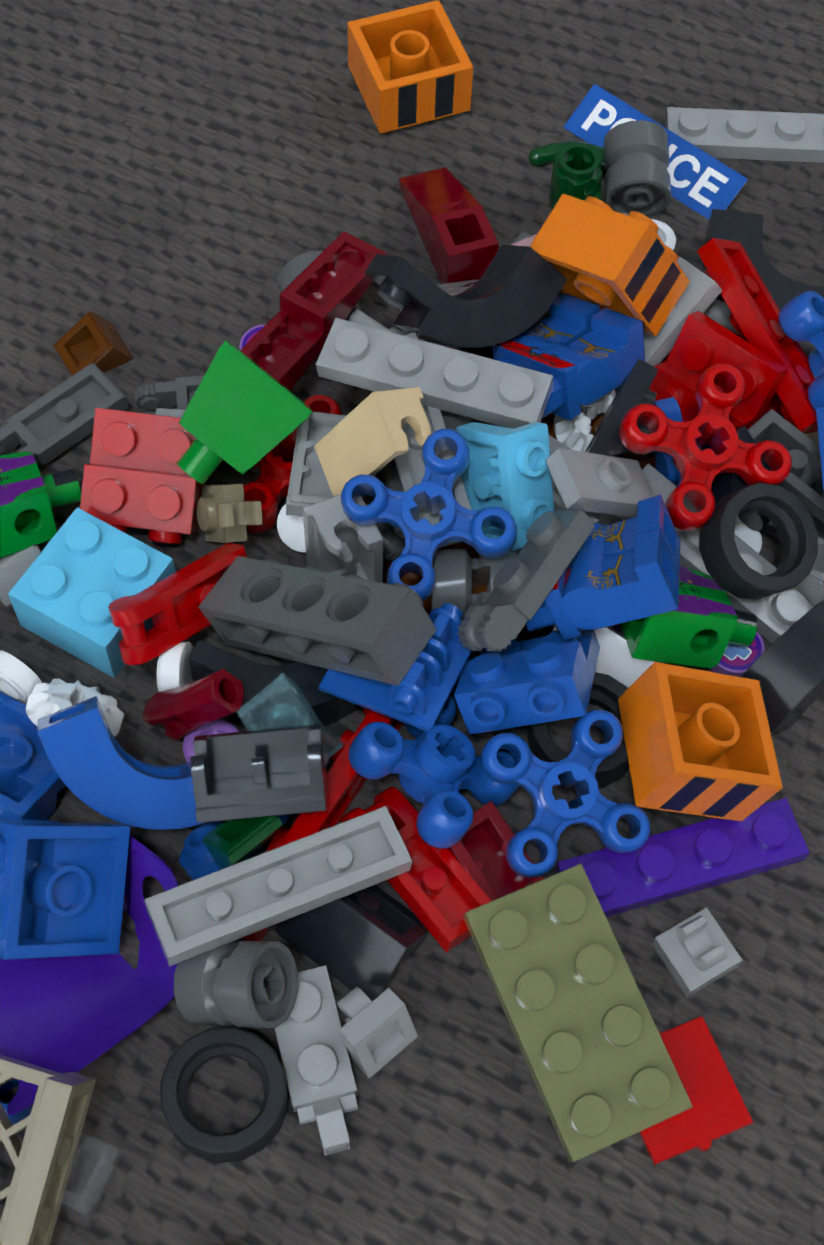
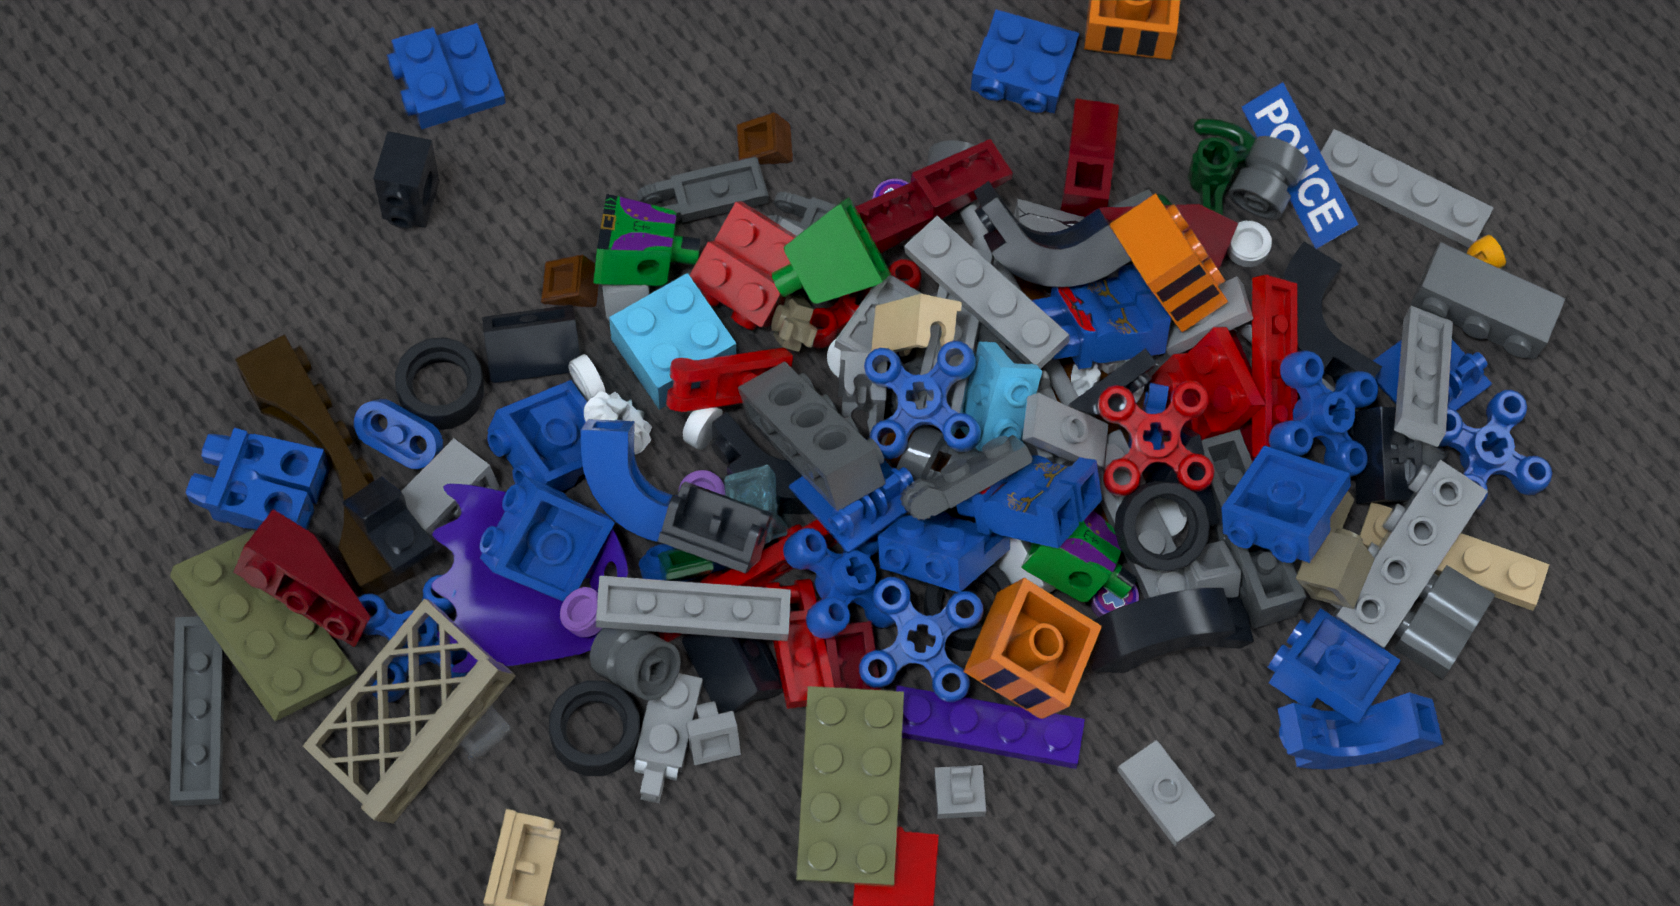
camera: 25 degrees right, 5 degrees up
(138, 956) = (580, 612): none -> medium lavender tile
(194, 704) = (701, 456): dark red bar -> none
(327, 167) = (1024, 62): none -> blue plate

